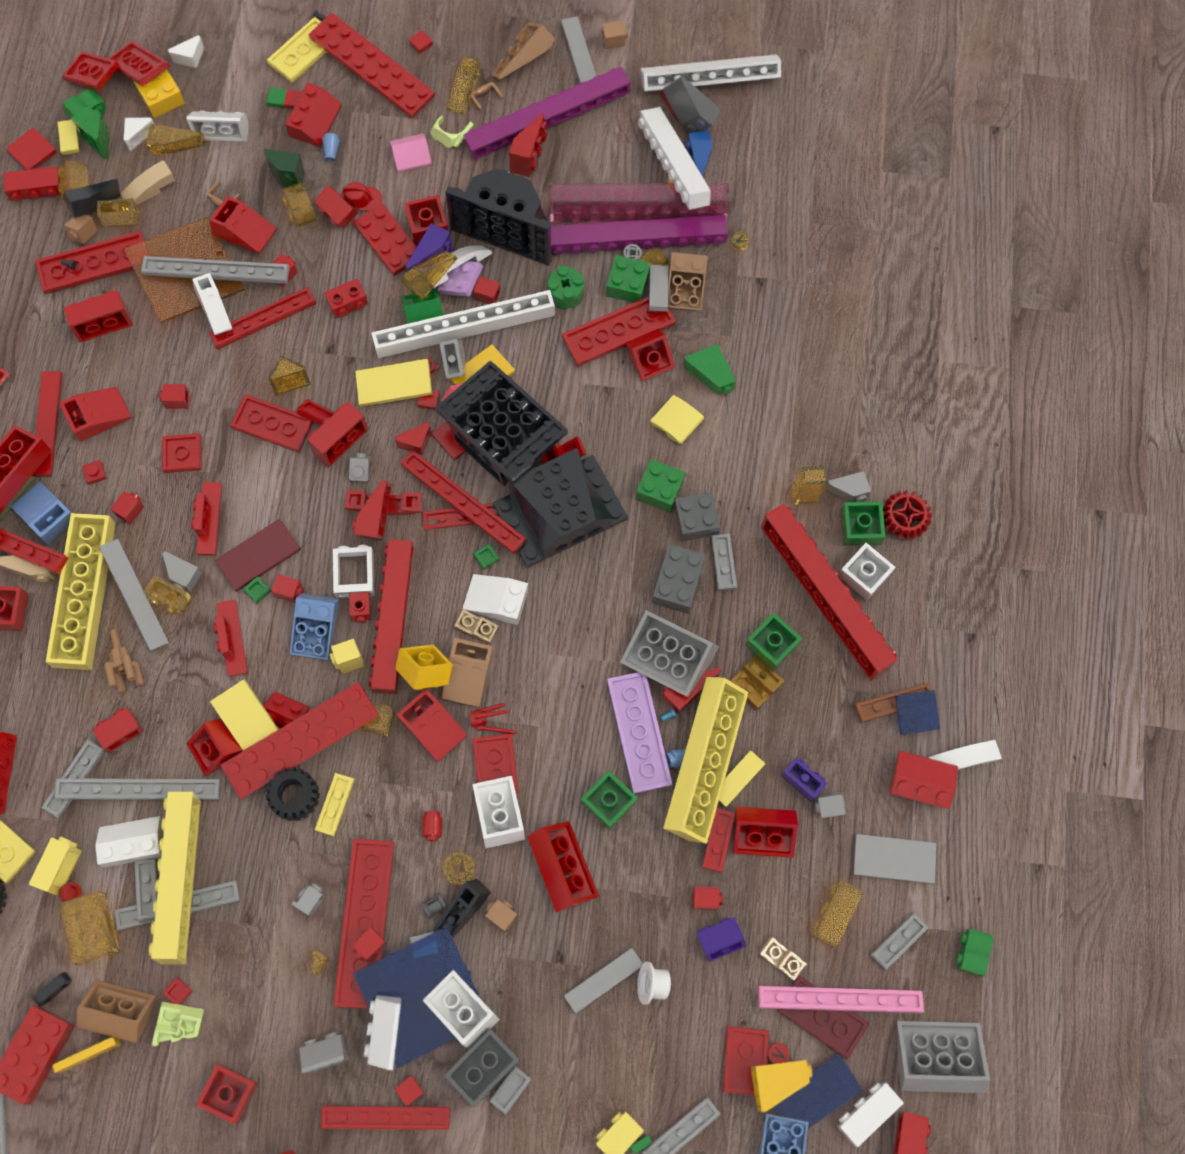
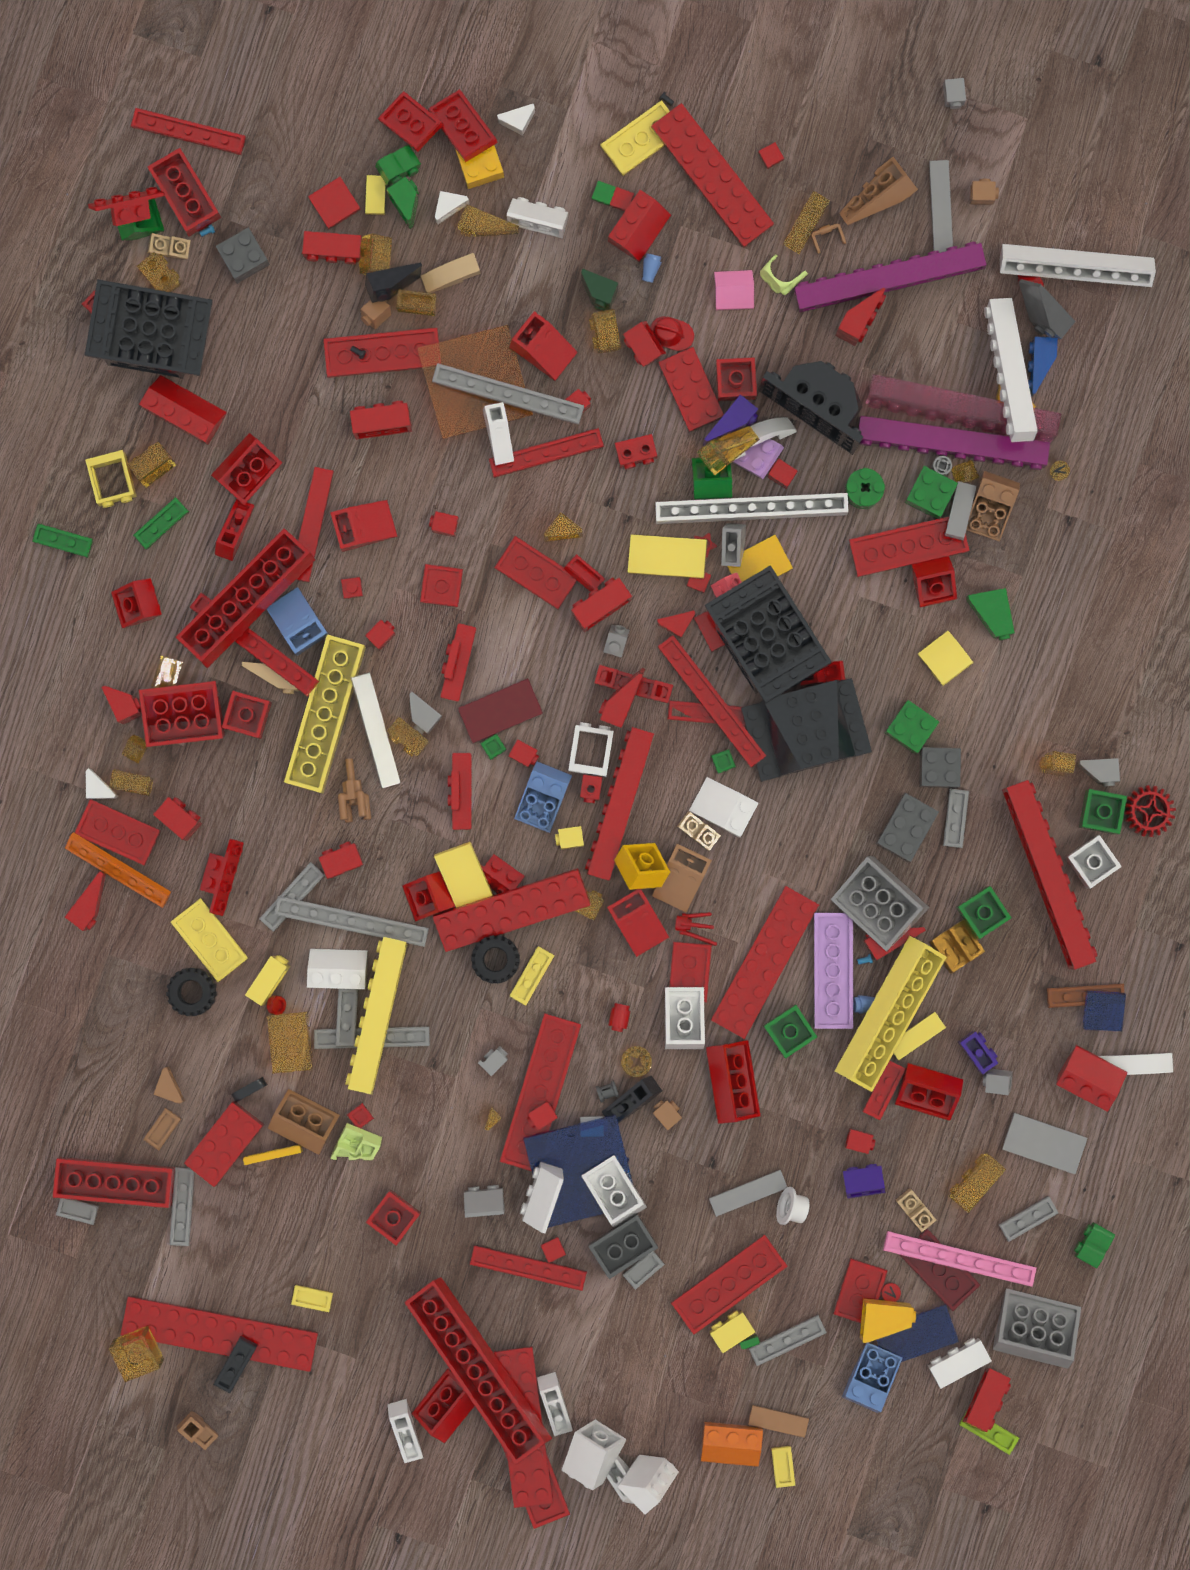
camera: 15 degrees right, 15 degrees up
(215, 199) = (521, 306): medium nougat piece -> none
(568, 740) = (764, 962): none -> red plate
(604, 1085) = (729, 1284): none -> red plate

